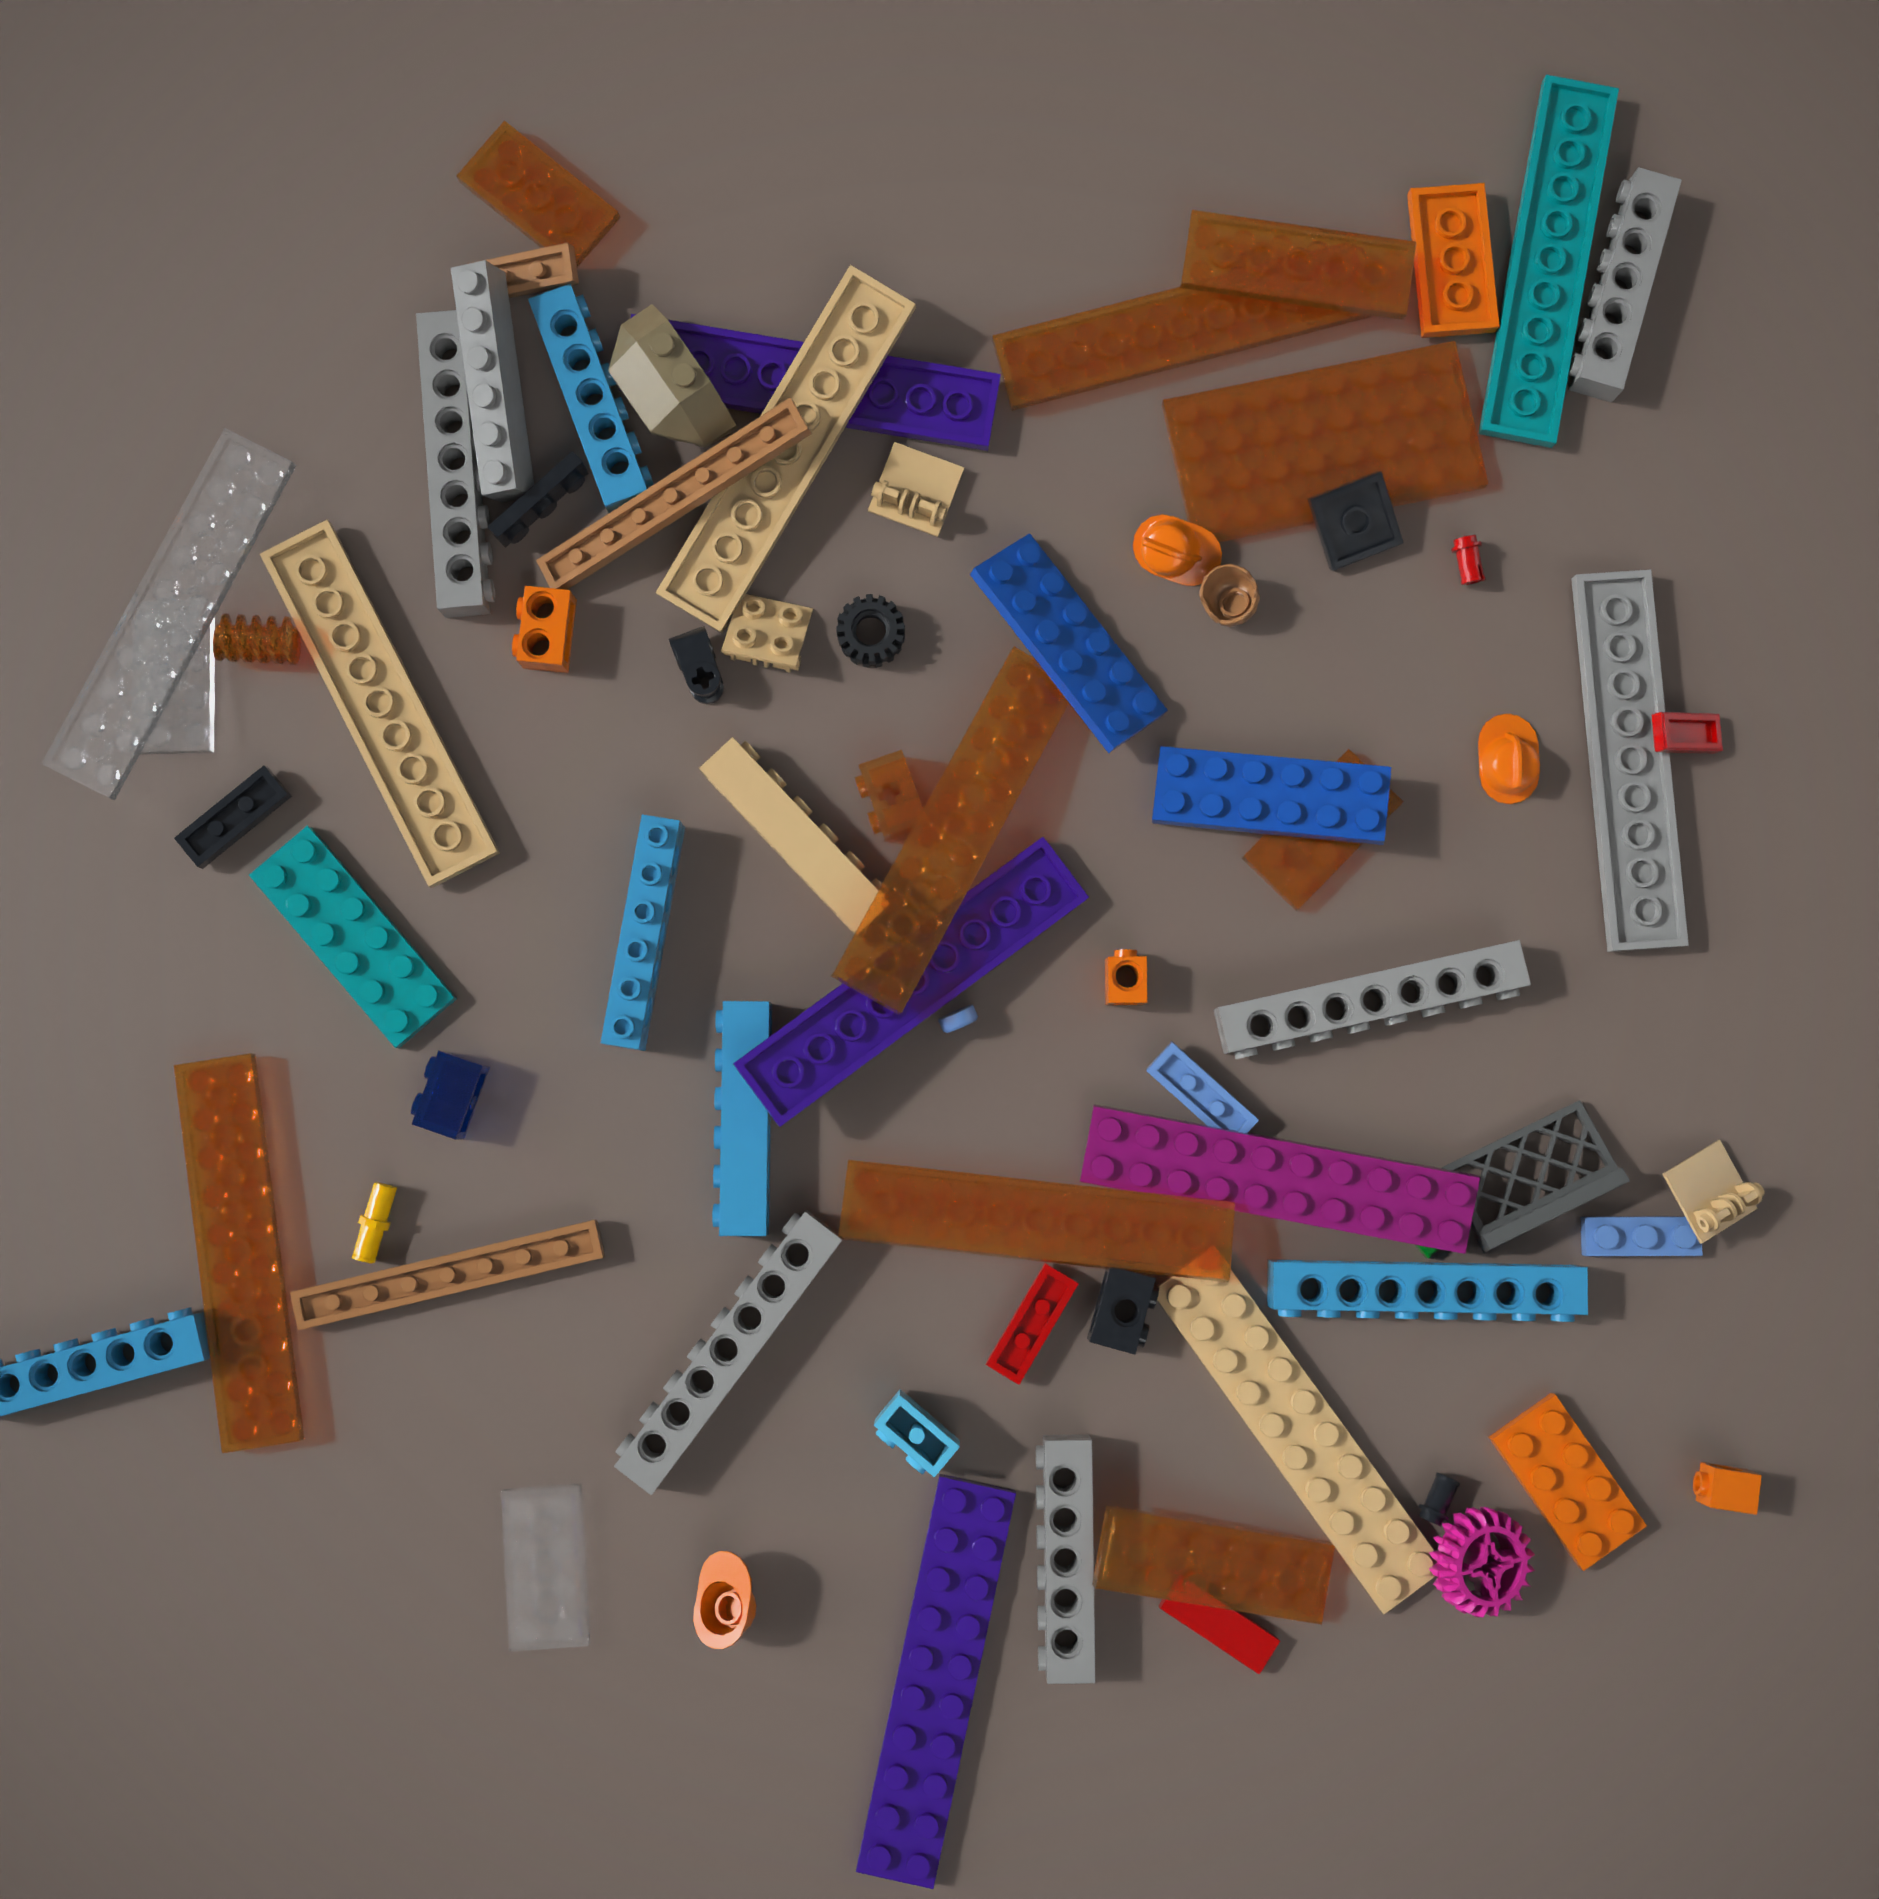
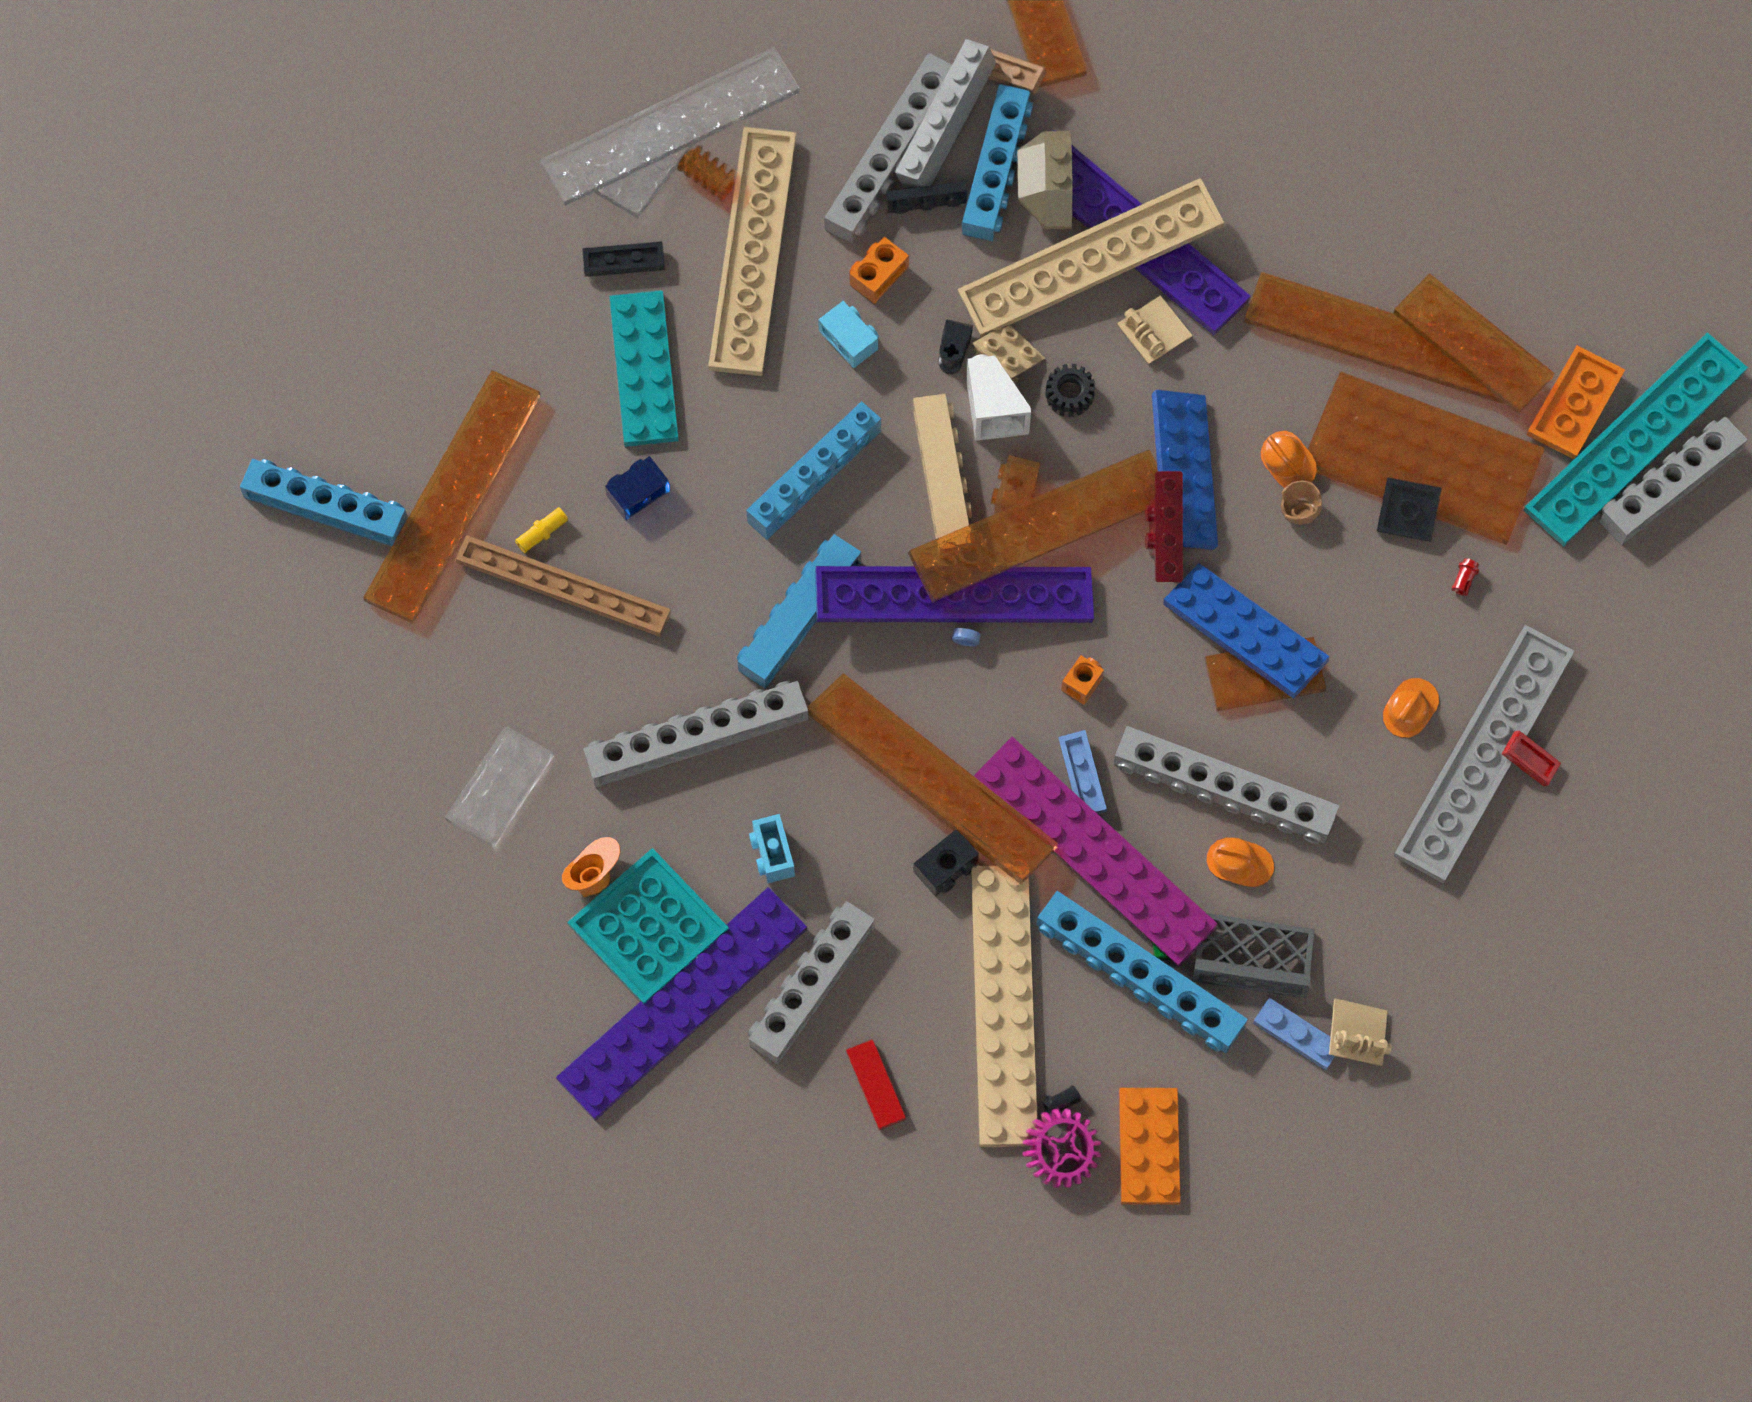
camera: 35 degrees right, 15 degrees down
(566, 734) = (848, 333): none -> medium azure brick
(674, 496) = (1007, 241): medium nougat plate -> none
(794, 706) = (995, 401): none -> white slope
(835, 1619) = (647, 926): none -> teal plate
(1031, 1323) = (886, 837): red plate -> none
(1100, 732) = (1166, 526): none -> dark red bracket
(1213, 1565) = (897, 1042): clear orange plate -> none
(1442, 1075) = (1240, 862): none -> orange piece
(1727, 1488) = (1245, 1211): orange brick -> none

